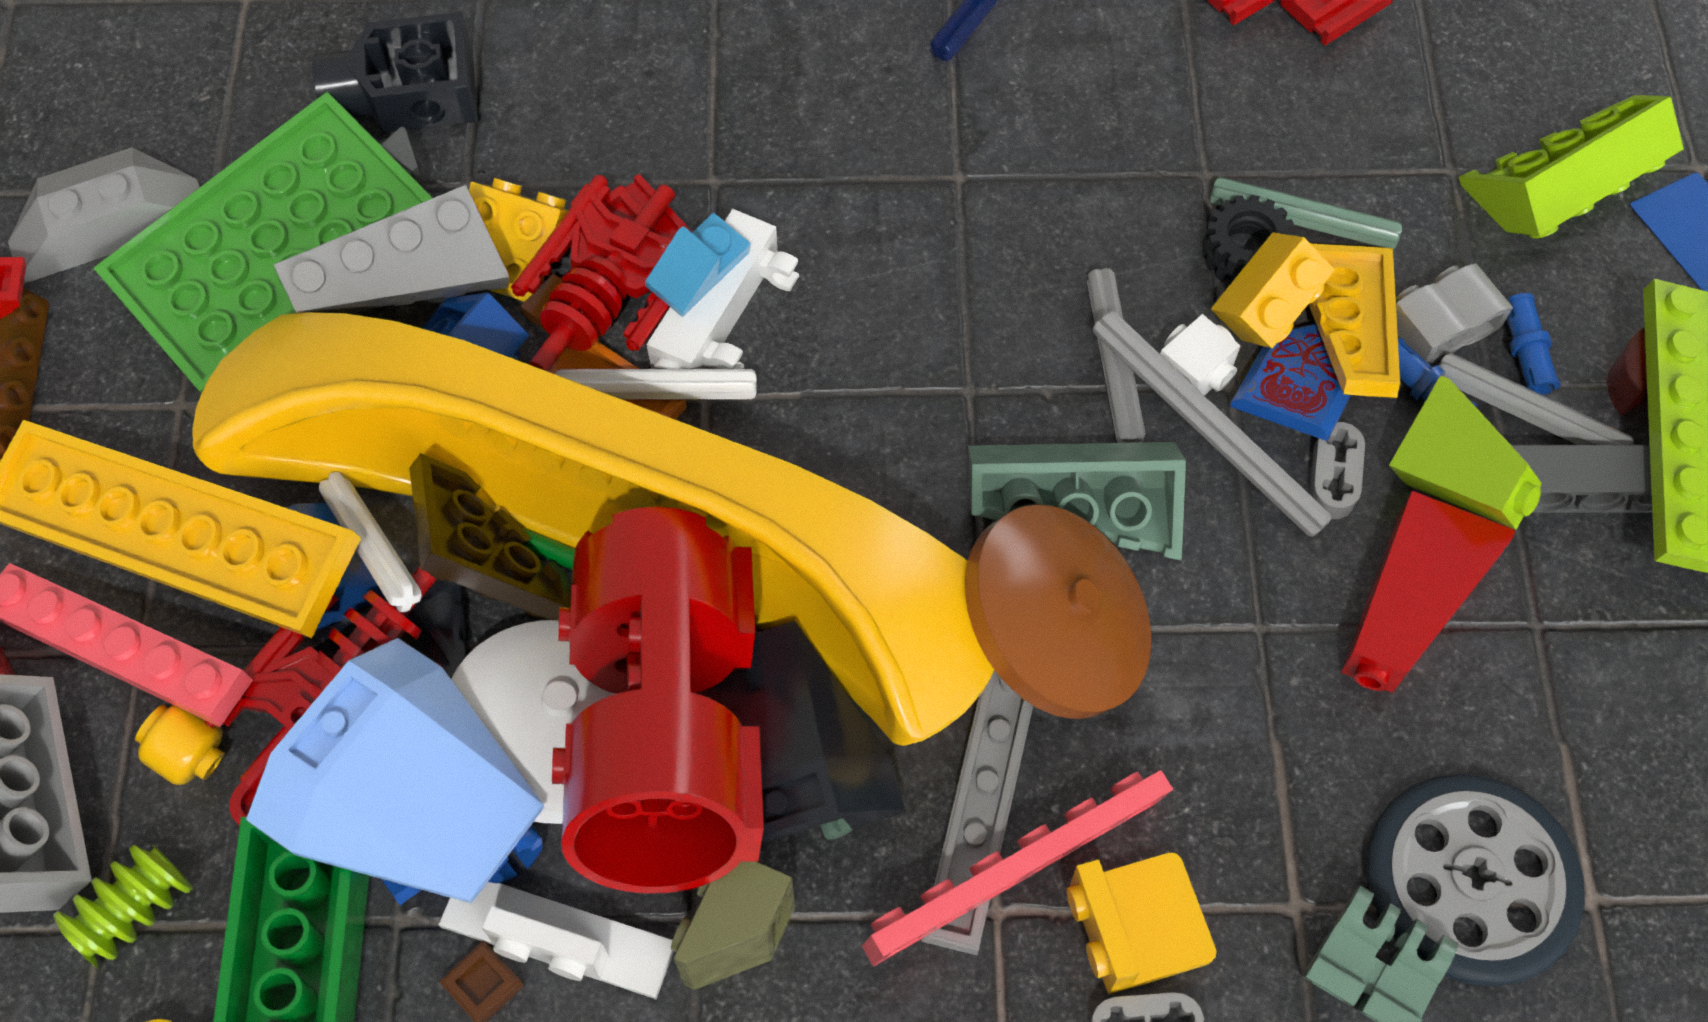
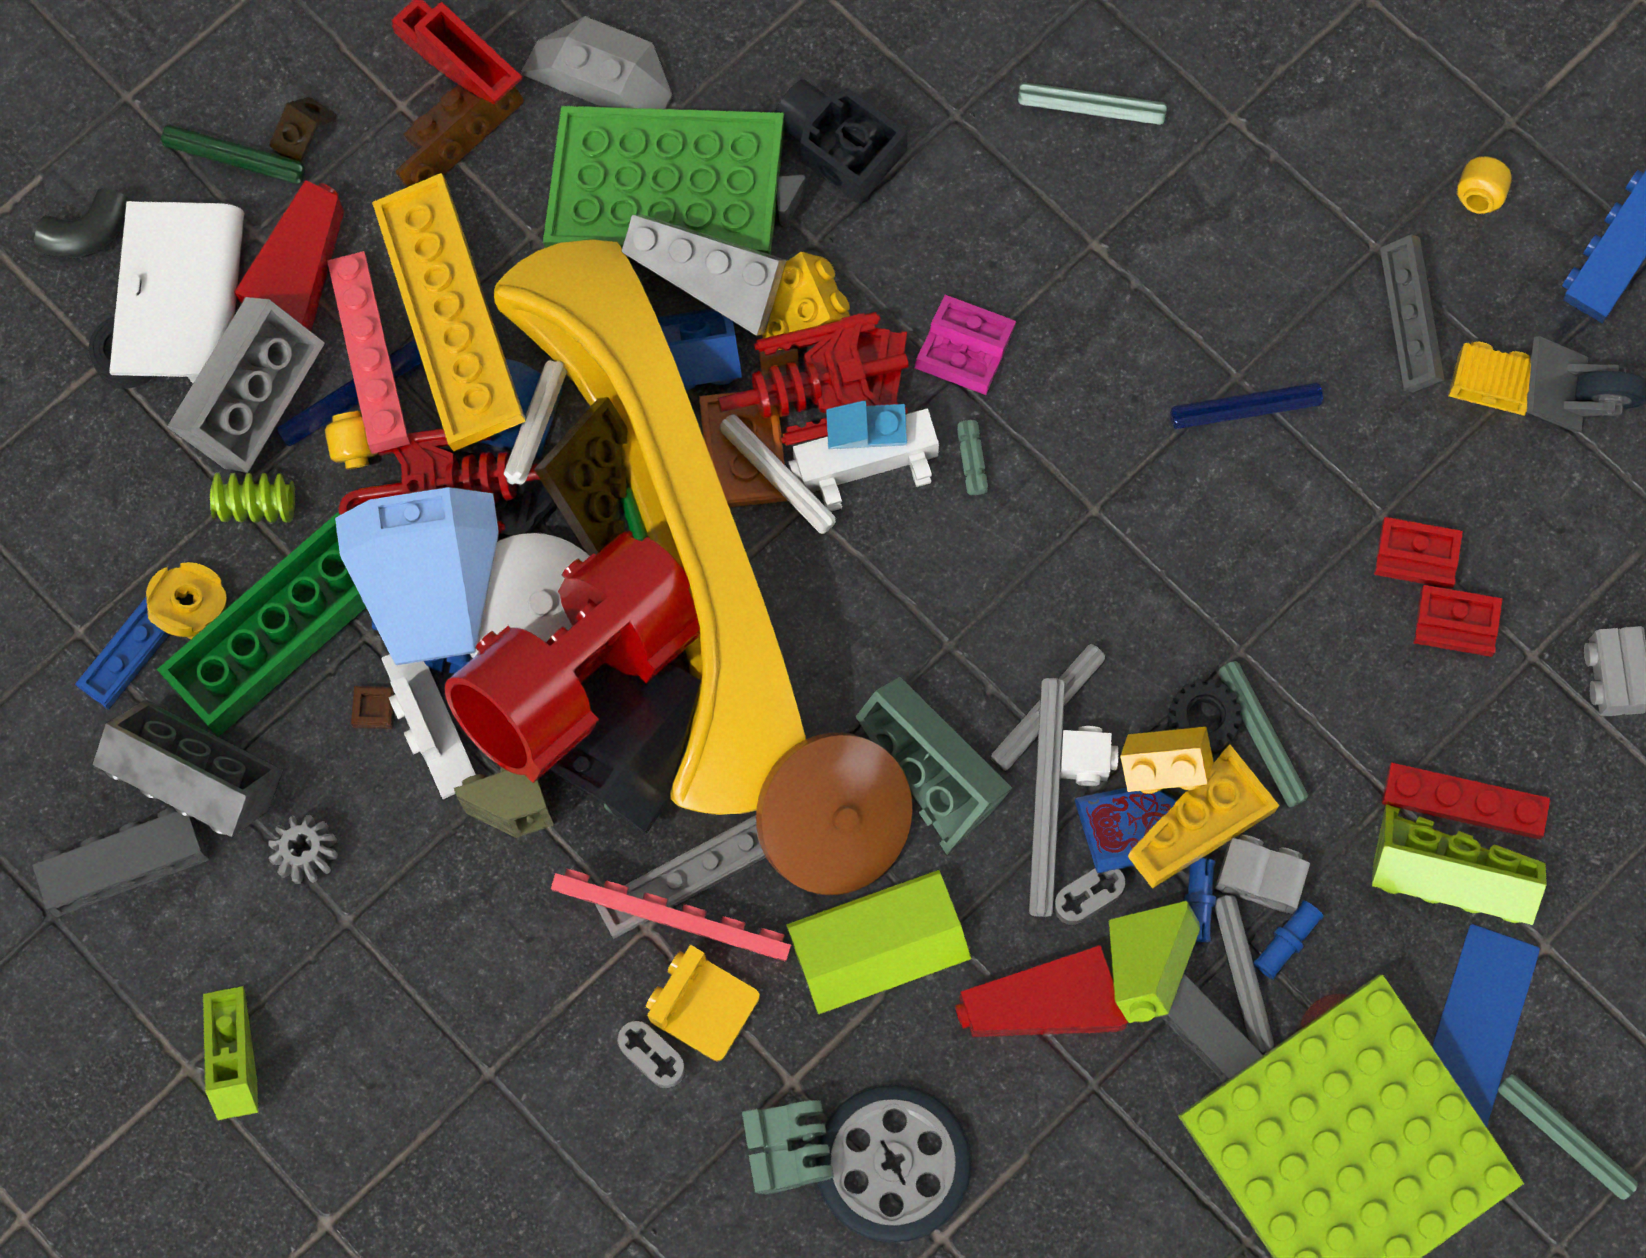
camera: 50 degrees right, 10 degrees up
(127, 717) = (341, 399): none -> clear blue axle
(699, 146) = (965, 344): none -> dark pink slope
(811, 224) = (972, 457): none -> sand green axle
(1222, 691) = (878, 941): none -> lime slope
(1509, 119) = (1466, 801): none -> red plate

